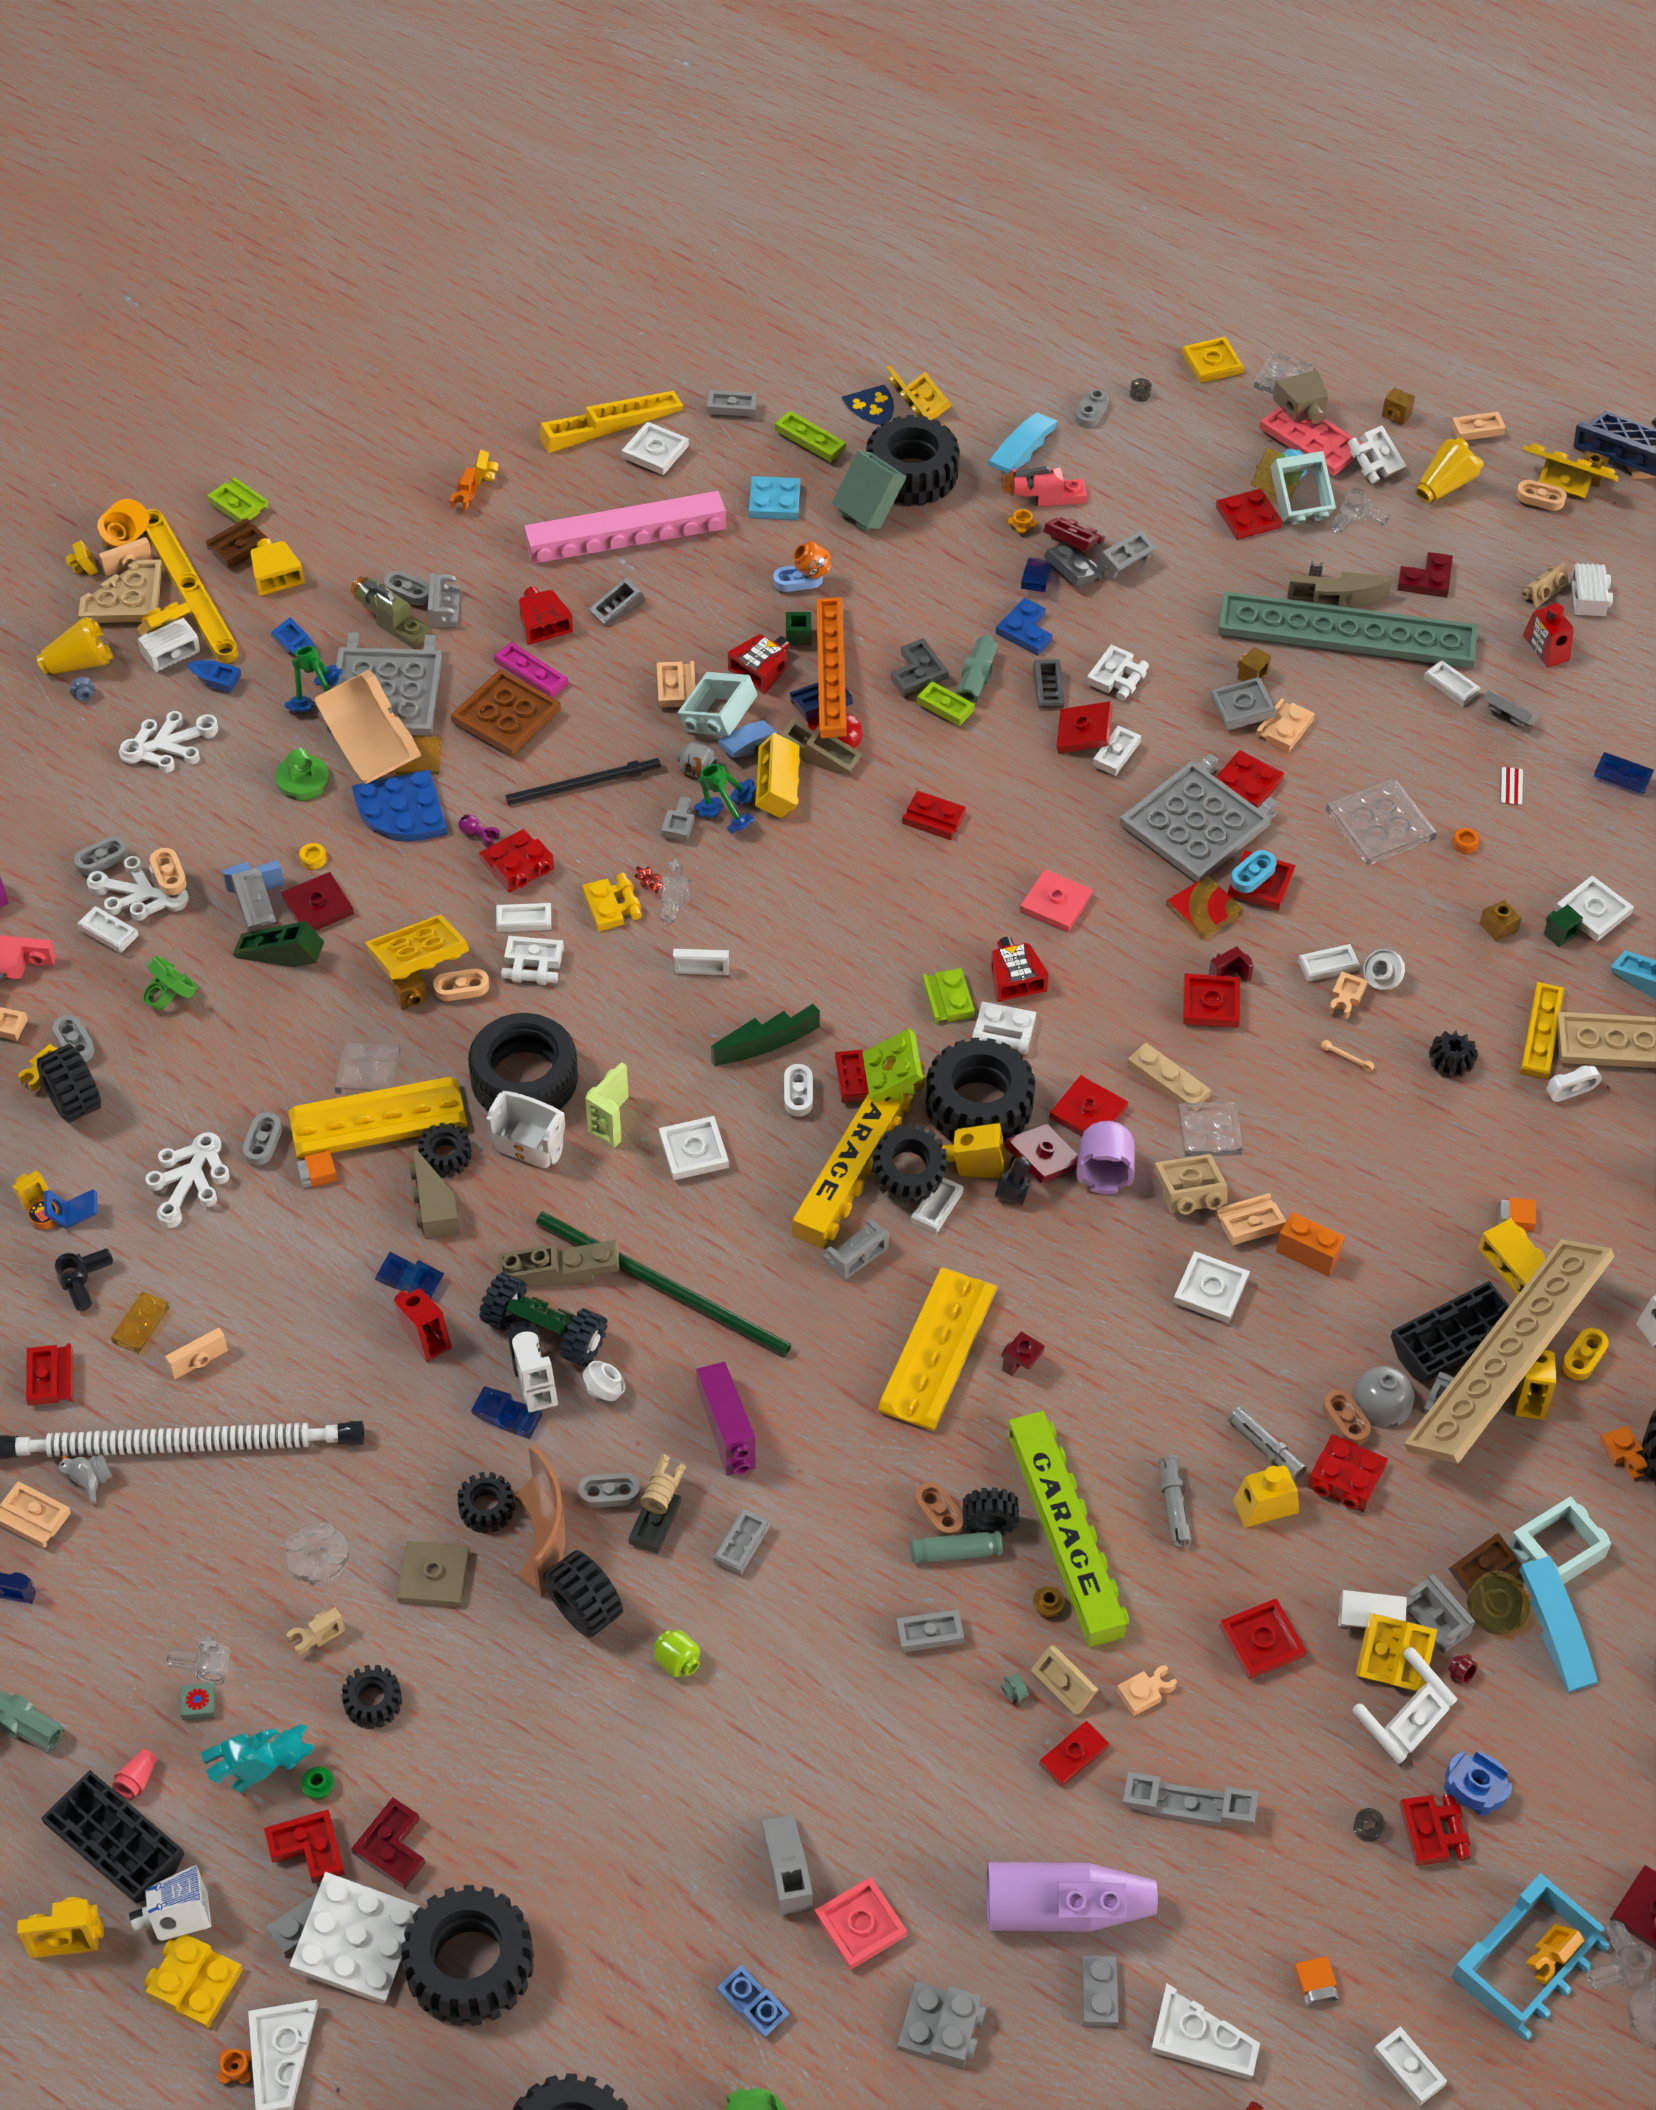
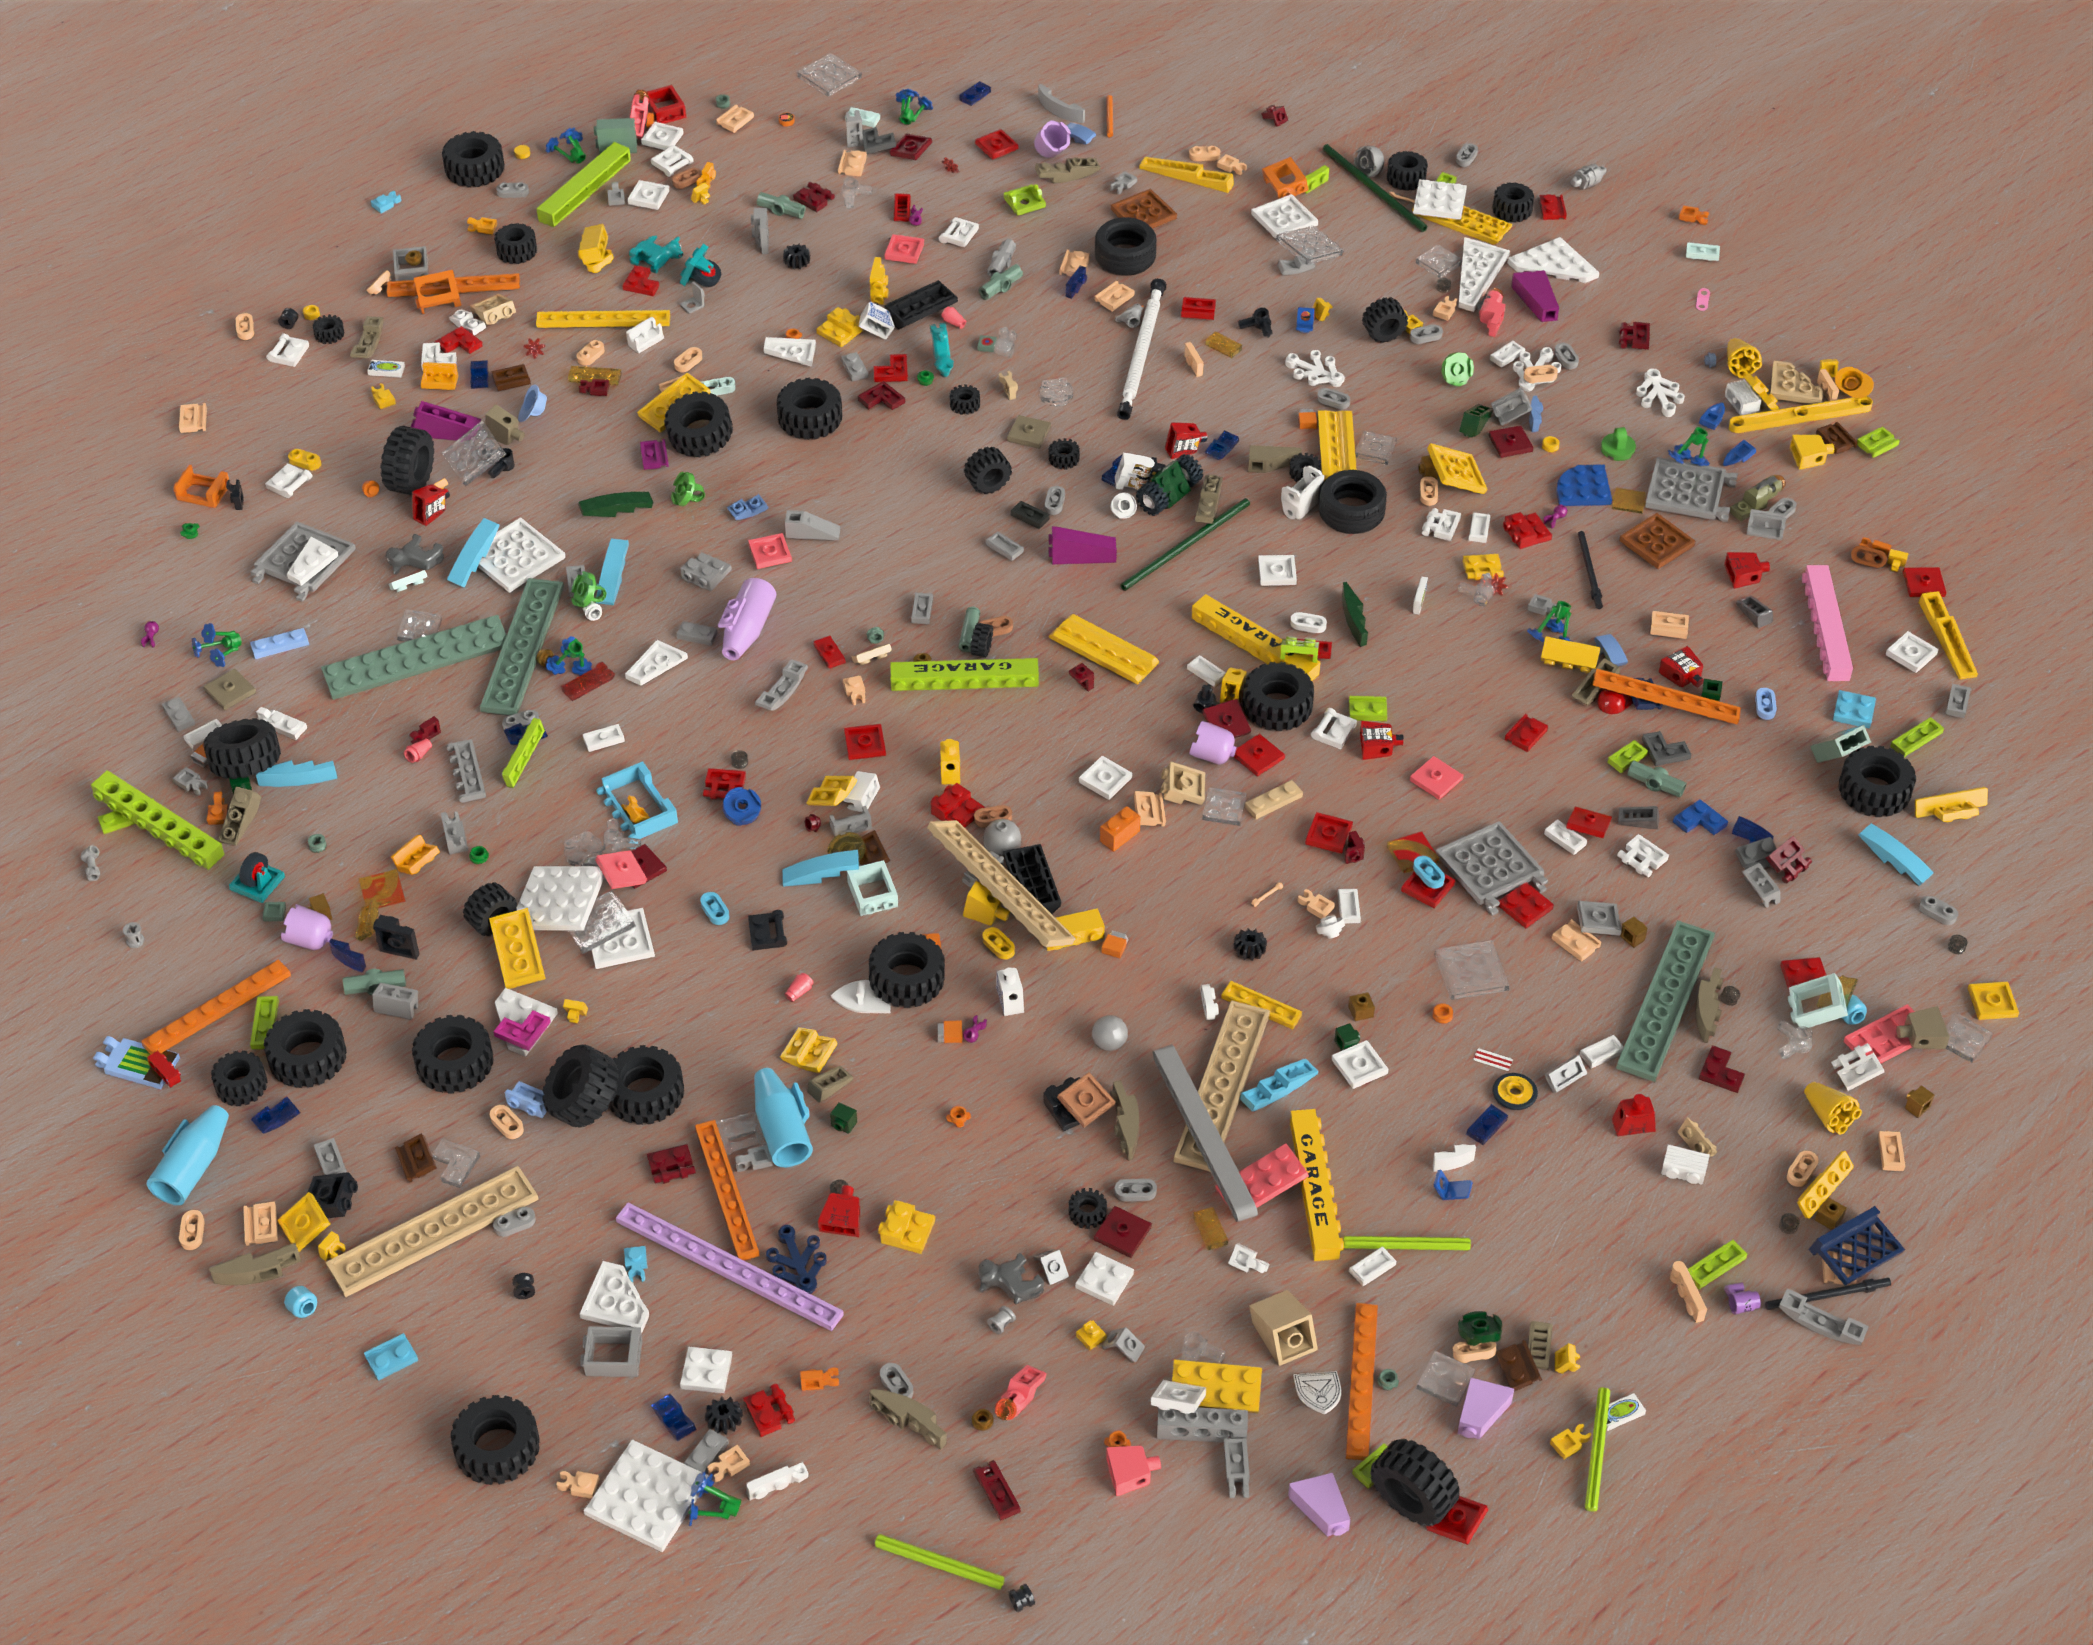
camera: 105 degrees right, 5 degrees down
(36, 773) = (1640, 335): none -> dark red plate
(353, 1938) = (843, 372): white plate -> none
(365, 728) = (1647, 473): light nougat panel -> none
(483, 495) = (1869, 556): none -> dark orange plate
(512, 445) = (1924, 580): none -> red plate
(530, 669) = (1697, 560): dark pink tile -> none
(543, 1505) = (1040, 467): nougat panel -> none
(604, 1105) = (1311, 526): yellowish green bracket -> none
(661, 1487) = (1043, 512): tan hinge -> none
(677, 1653) = (945, 508): lime head -> none
(695, 758) = (1595, 622): light grey head -> none
(739, 693) = (1640, 634): light aqua window -> none
(812, 559) = (1769, 699): orange head -> none
(858, 1250) = (1181, 627): light grey hinge -> none
(871, 404) = (1954, 781): dark blue sticker -> none
(911, 1141) = (1228, 646): black tyre -> none
(1022, 521) = (1811, 839): light orange plate -> none
(1044, 484) = (1843, 855): coral plate -> none
(1173, 1490) = (965, 726): light grey pin -> none
(1242, 1420) = (981, 778): light grey pin -> none
(1316, 1981) = (664, 716): orange piece -> none
(1416, 1717) = (789, 790): white plate -> none
(1569, 749) = (1519, 1101): none -> wheel
(1619, 503) = (1785, 1228): none -> clear smoke bush

